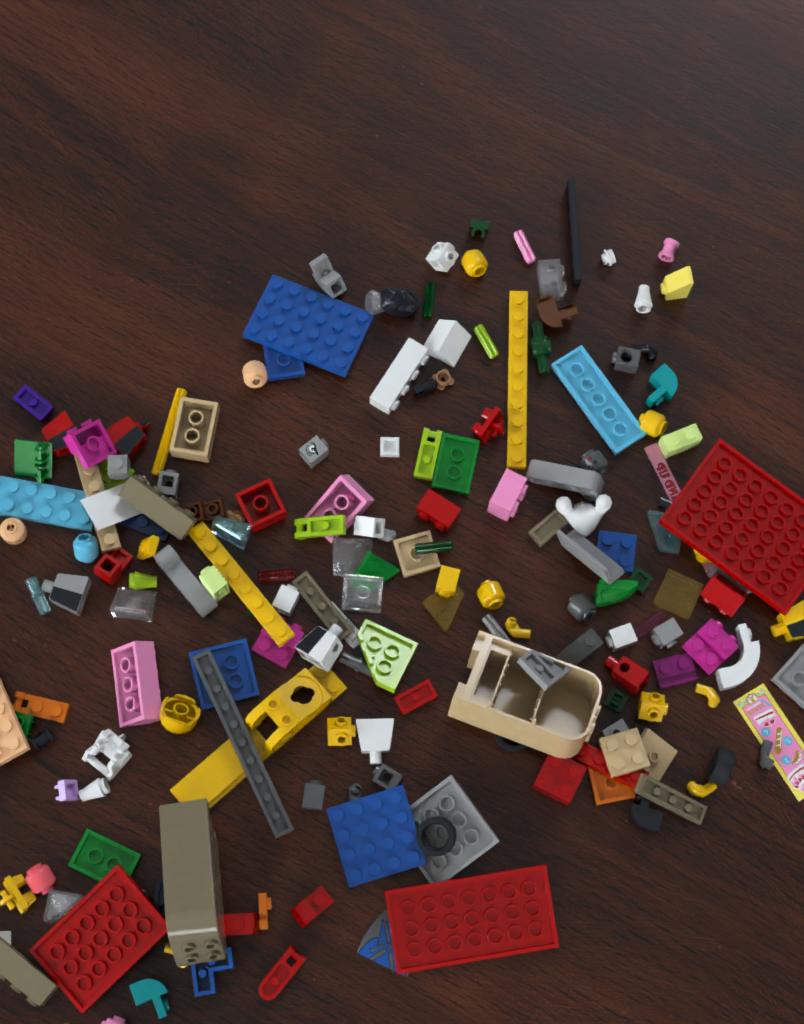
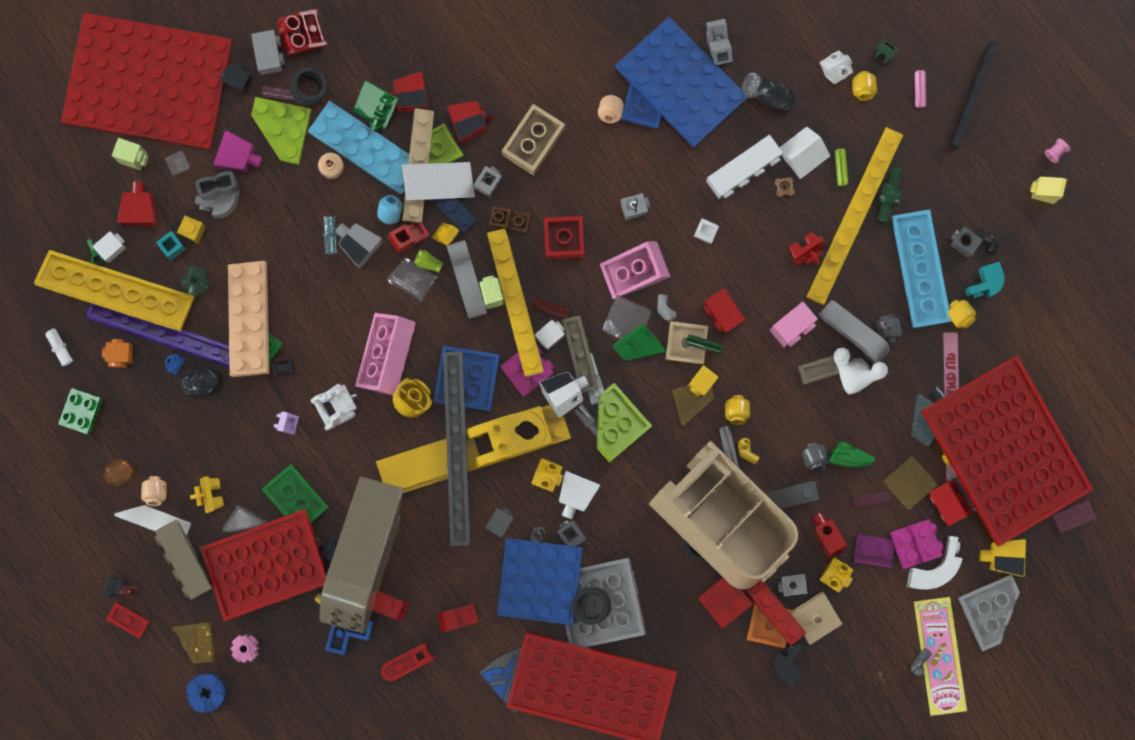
camera: 25 degrees right, 10 degrees up
(33, 403) = (396, 50): dark purple plate -> none
(40, 878) = (233, 490): coral head -> none
(41, 707) = (293, 338): orange plate -> none
(90, 443) = (432, 114): dark pink plate -> none
(96, 789) = (311, 433): white cone -> none
(118, 467) = (449, 147): light grey brick -> none
(151, 990) = (293, 628): teal brick -> none
(157, 506) = (469, 200): dark tan brick -> none
(164, 446) = (508, 131): yellow axle -> none
(232, 531) = (527, 250): clear light blue wing -> none
(236, 515) = (536, 239): medium nougat plate -> none
(265, 904) = (417, 598): orange plate -> none
(320, 526) = (609, 281): lime plate -> none
(362, 593) = (621, 359): clear slope -> none
(369, 526) = (654, 299): white brick -> none
(415, 697) = (628, 473): red plate -> none
(424, 387) = (763, 188): black pin -> none
(427, 454) = (738, 253): lime plate -> none
(429, 300) = (805, 103): dark green axle -> none
(455, 464) = (760, 273): green plate -> none
(542, 669) = (750, 501): light grey wing -> none
(550, 278) = (929, 133): clear brick -> none
(551, 314) = (915, 168): reddish brown brick -> none
(590, 556) = (844, 415): light grey panel -> none
(608, 257) = (995, 133): white plate -> none
(615, 700) = (807, 554): dark green tile -> none
(618, 547) = (870, 419): blue plate -> none
(621, 637) = (838, 500): white brick -> none
(624, 752) = (791, 606): tan plate -> none
(643, 300) = (1010, 189): white cone -> none
(643, 579) = (881, 454): dark green plate -> none
(666, 634) = (881, 515): light grey brick -> none
(670, 799) = (814, 664): dark tan tile -> none
(680, 441) = (979, 341): yellowish green brick -> none
(700, 790) = (846, 668): yellow arm -> none
(710, 693) = (896, 584): yellow arm -> none
(721, 766) = (873, 655): black tyre -> none

